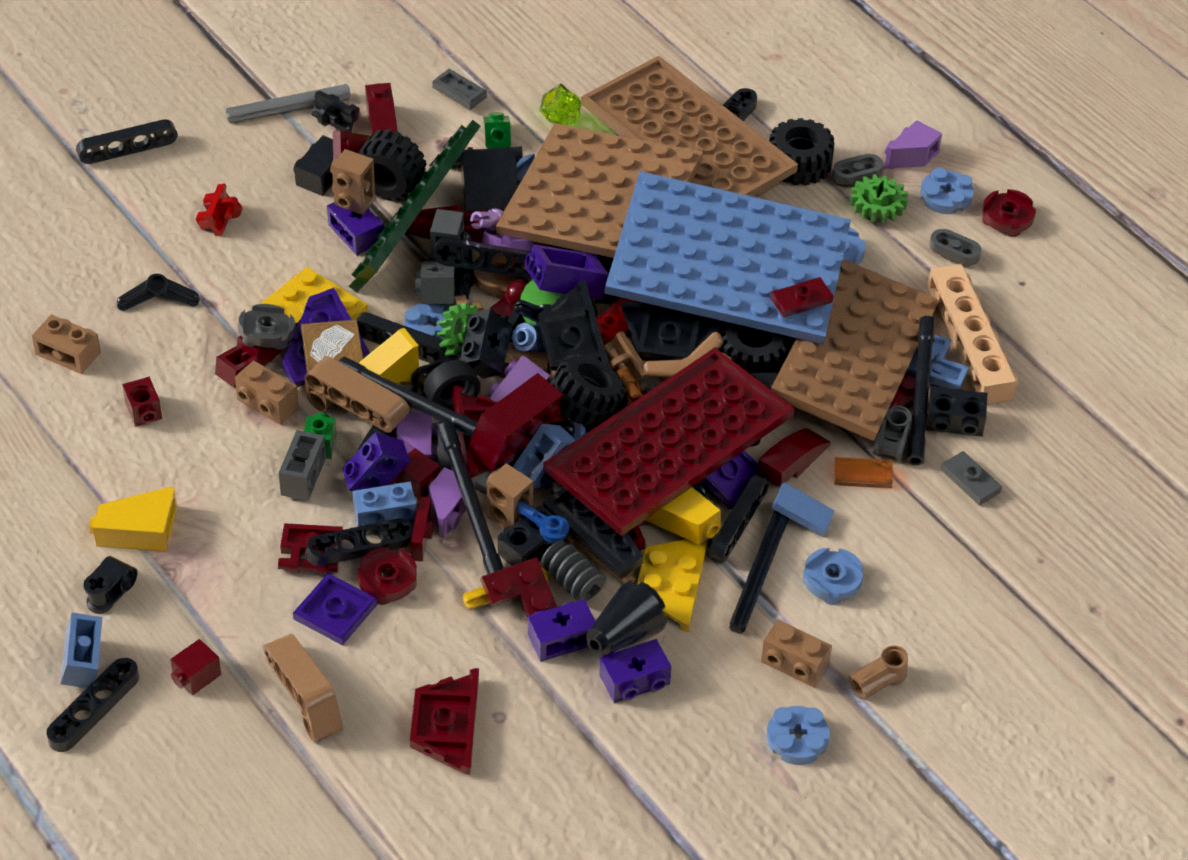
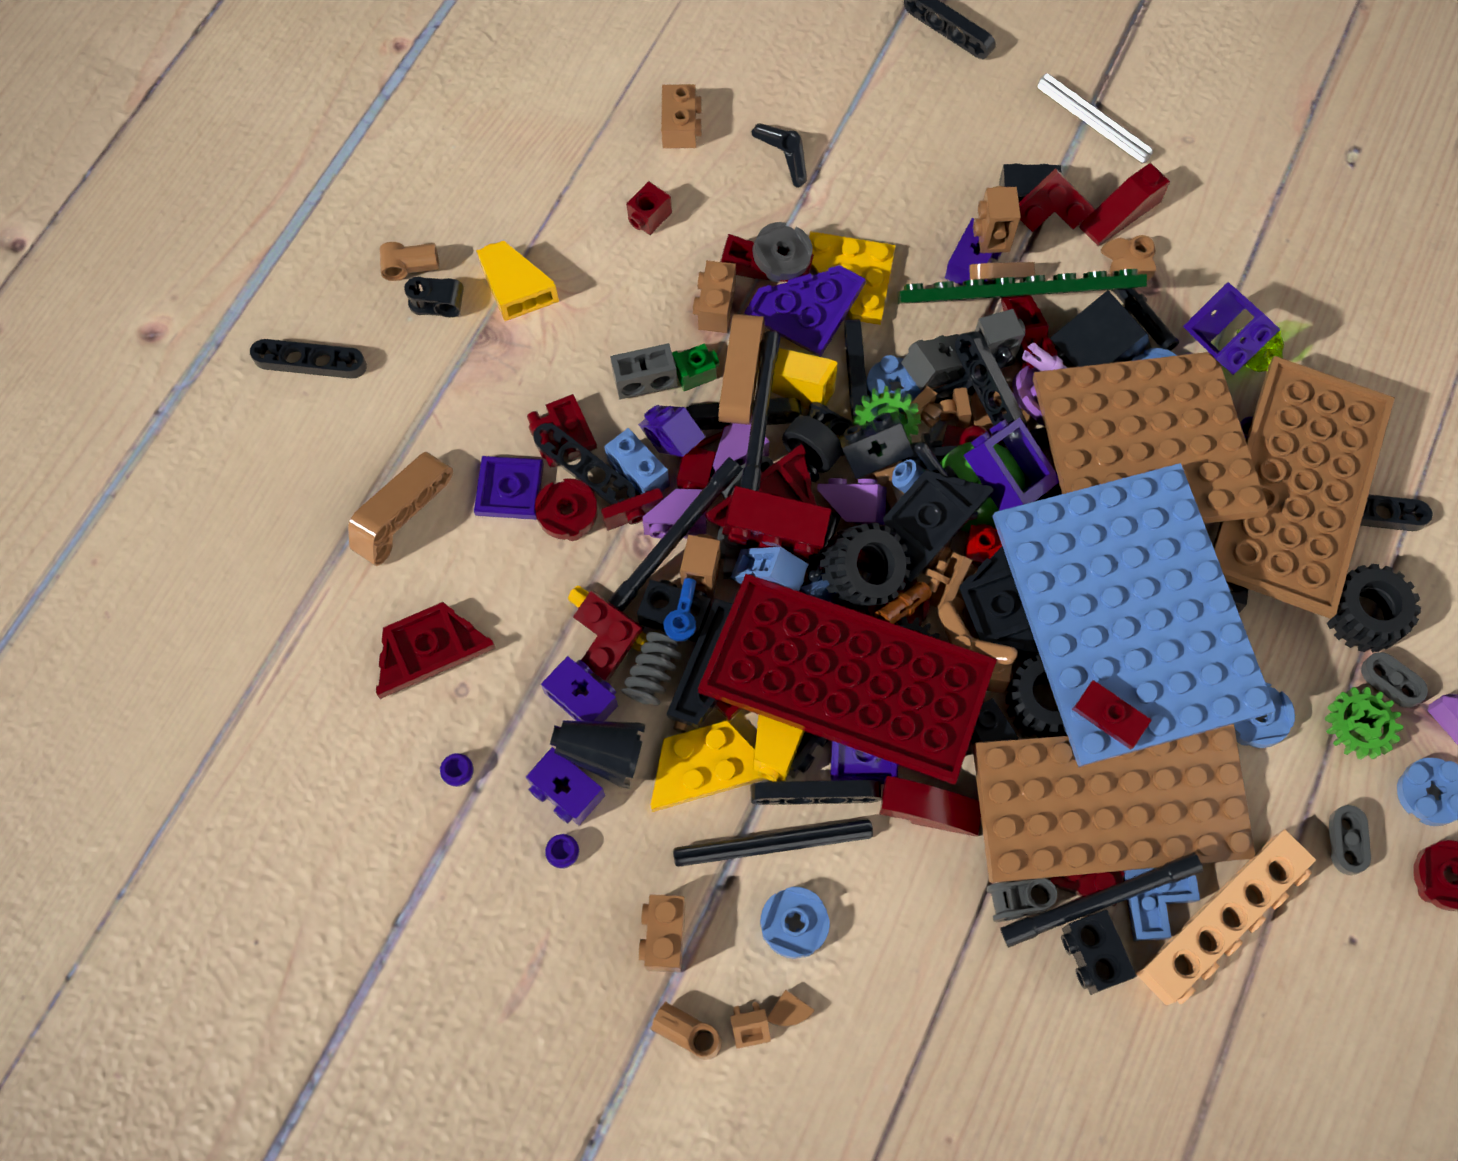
camera: 65 degrees right, 20 degrees up
(50, 593) = (399, 260): none -> medium nougat piece
(81, 650) = (344, 317): medium blue brick -> none
(195, 667) = (379, 412): dark red brick -> none
(219, 211) = (915, 138): red hips -> none
(332, 340) = (798, 317): tile -> none
(334, 112) = (1105, 157): black hips -> none
(389, 209) = (991, 271): none -> medium nougat beam
(396, 163) = (1058, 238): black tyre -> none
(429, 139) = (1126, 255): none -> medium nougat plate
(459, 89) = (1221, 246): dark grey plate -> none
(483, 290) = (957, 408): none -> medium nougat tile
(497, 130) = (1186, 305): green bracket -> none
(519, 107) = (1228, 305): none -> dark purple window
(571, 742) = (456, 770): none -> dark purple plate
(686, 698) = (562, 851): none -> dark purple plate
(802, 719) = (554, 975): medium blue plate -> none
(803, 509) = (860, 851): medium blue tile -> none
(863, 472) = (956, 889): clear orange tile -> none
(897, 609) = (789, 1011): none -> medium nougat tile
(897, 632) = (750, 1027): none -> medium nougat tile
(971, 478) = (1017, 1010): dark grey plate -> none

